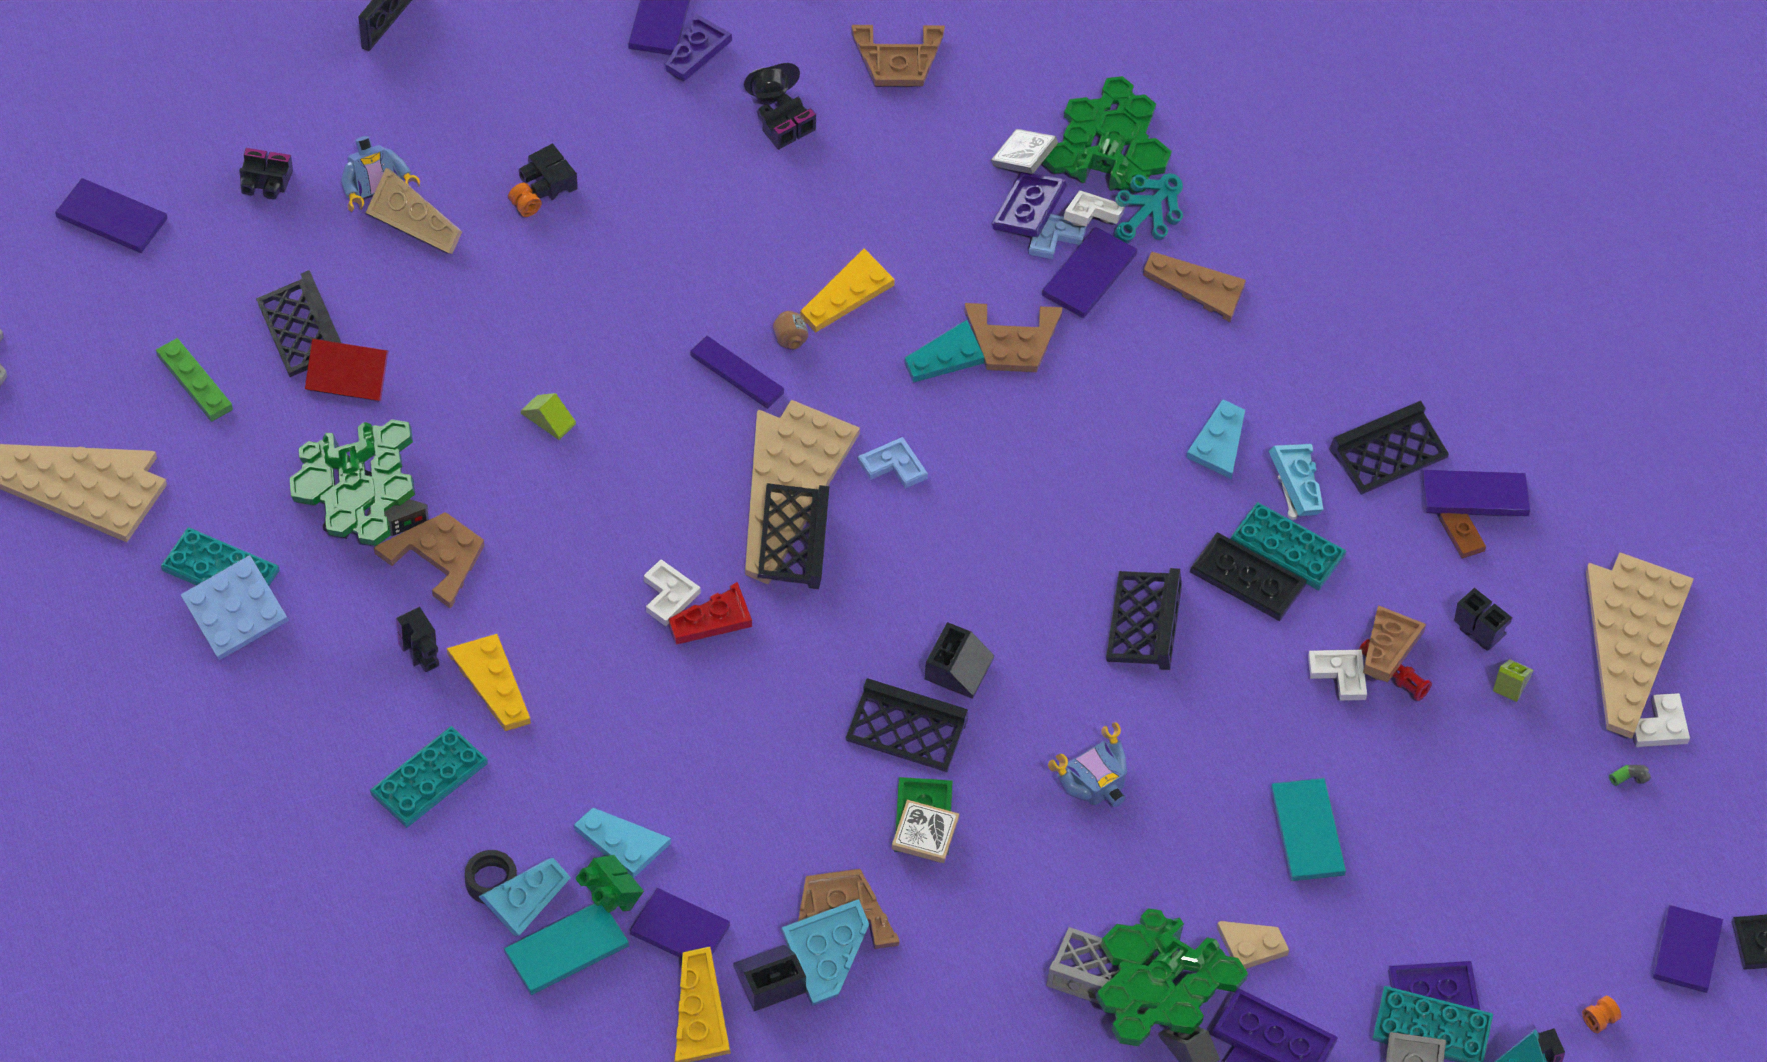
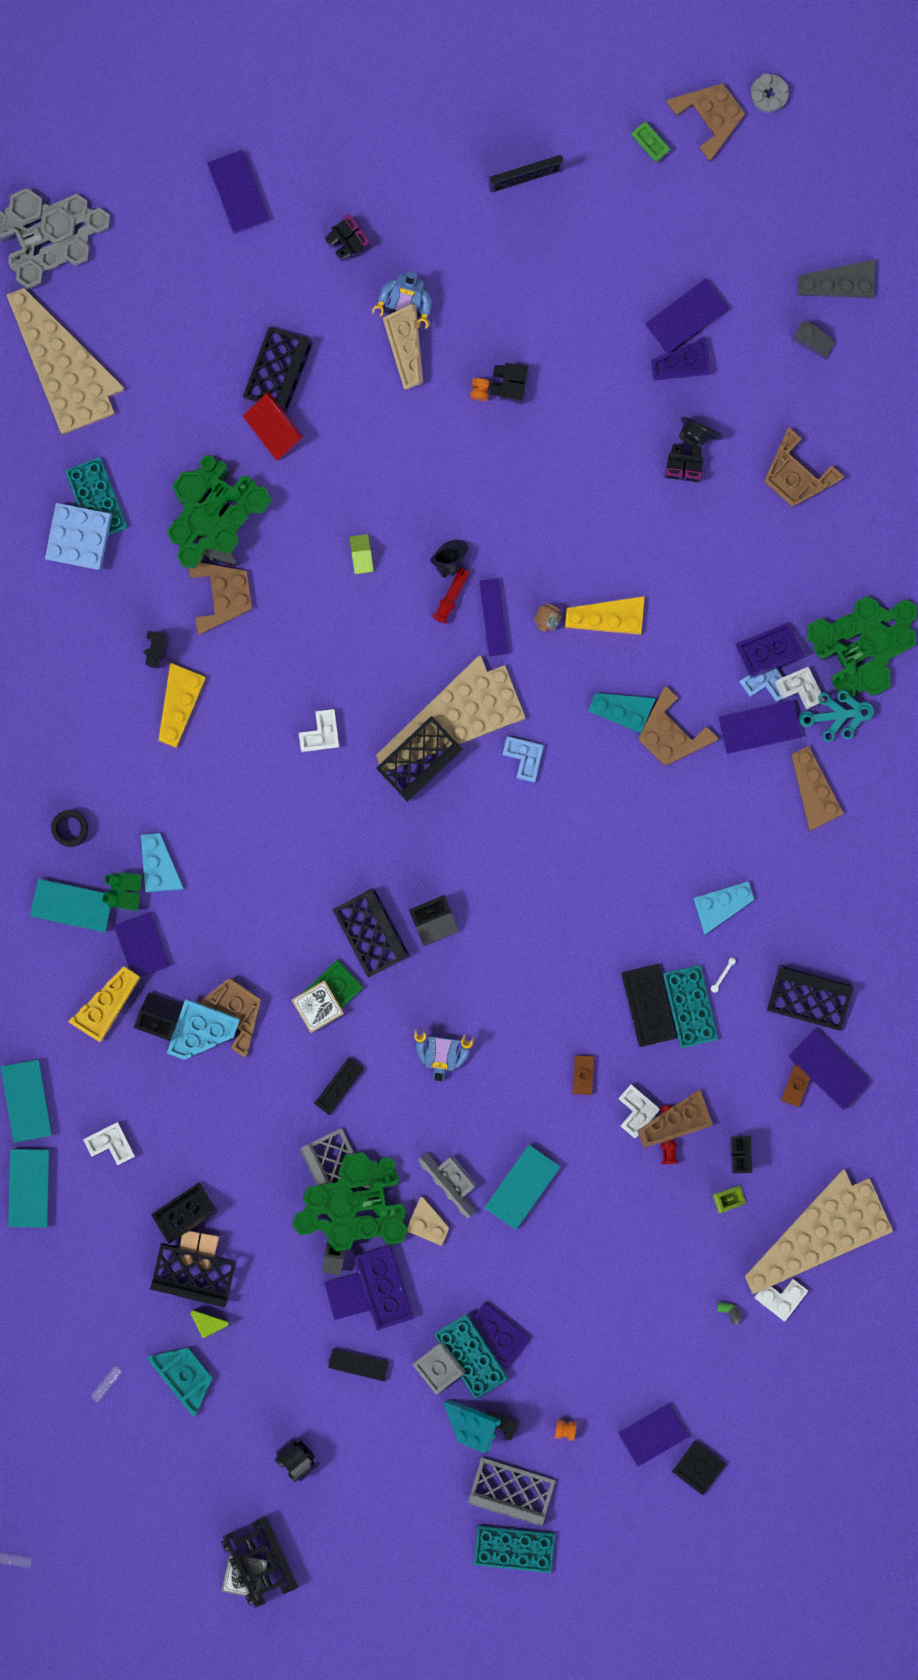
camera: 45 degrees right, 30 degrees up
(194, 379) = (188, 354): bright green plate -> none
(429, 776) = (93, 735): teal tile -> none
(526, 895) = (77, 857): medium azure wing -> none
(642, 350) = (449, 557): none -> black piece
(679, 391) = (447, 603): none -> red pin
(717, 616) = (332, 771): red wing -> none
(1024, 151) = (802, 610): tile -> none
(1024, 892) = (339, 1086): none -> black tile
(1167, 618) = (576, 993): black fence -> none
(1233, 875) = (452, 1180): none -> light grey bracket
(1254, 685) = (583, 1075): none -> dark orange plate
(1297, 474) = (738, 969): medium azure wing -> none

